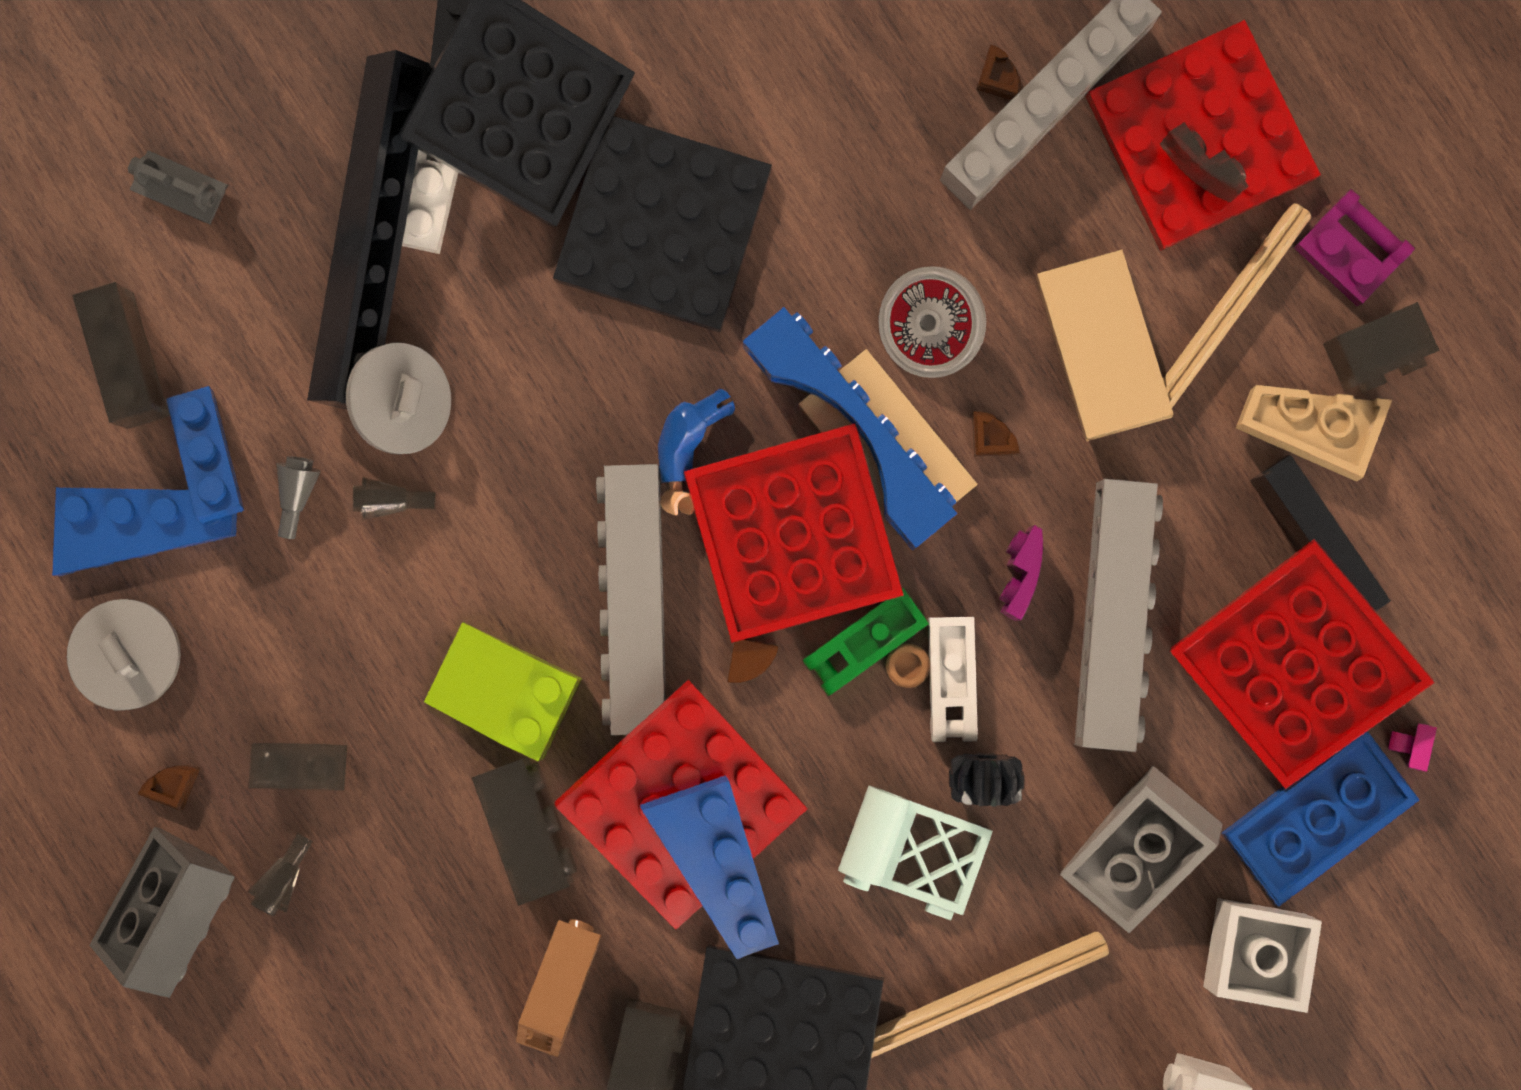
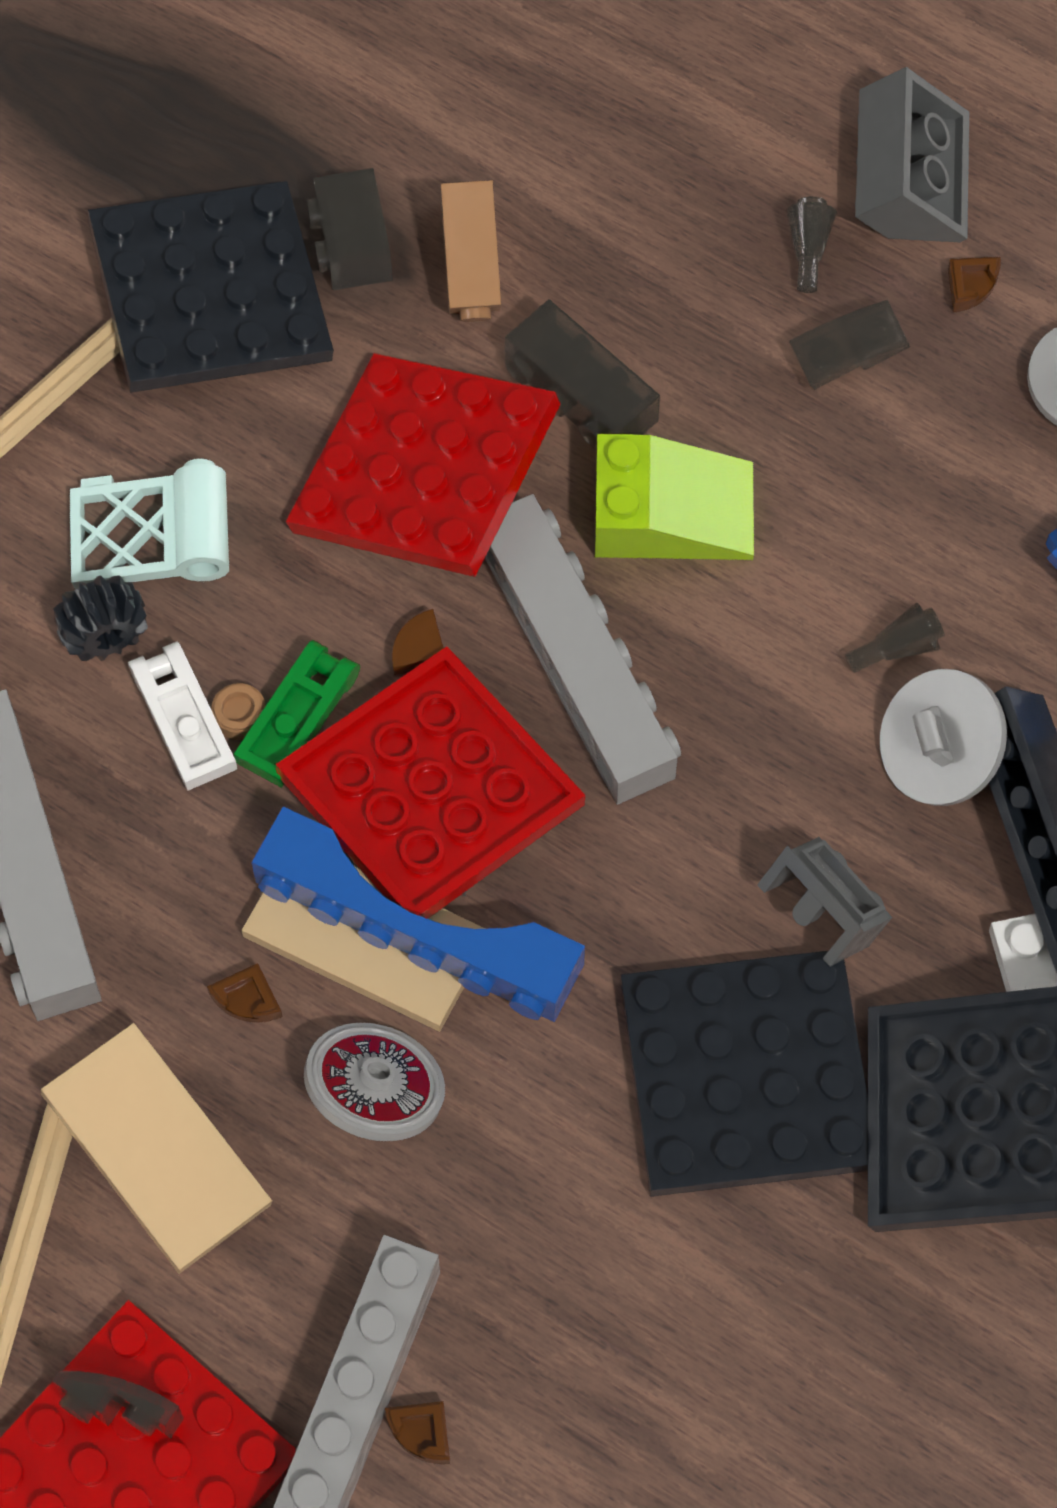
camera: 160 degrees right, 20 degrees down
(295, 485) = (1009, 615): dark grey cone -> none
(541, 314) = (830, 888): none -> dark grey window
(677, 443) = (607, 832): blue arm -> none
(713, 854) = (362, 422): blue wing -> none
(1026, 559) = (149, 859): magenta slope -> none

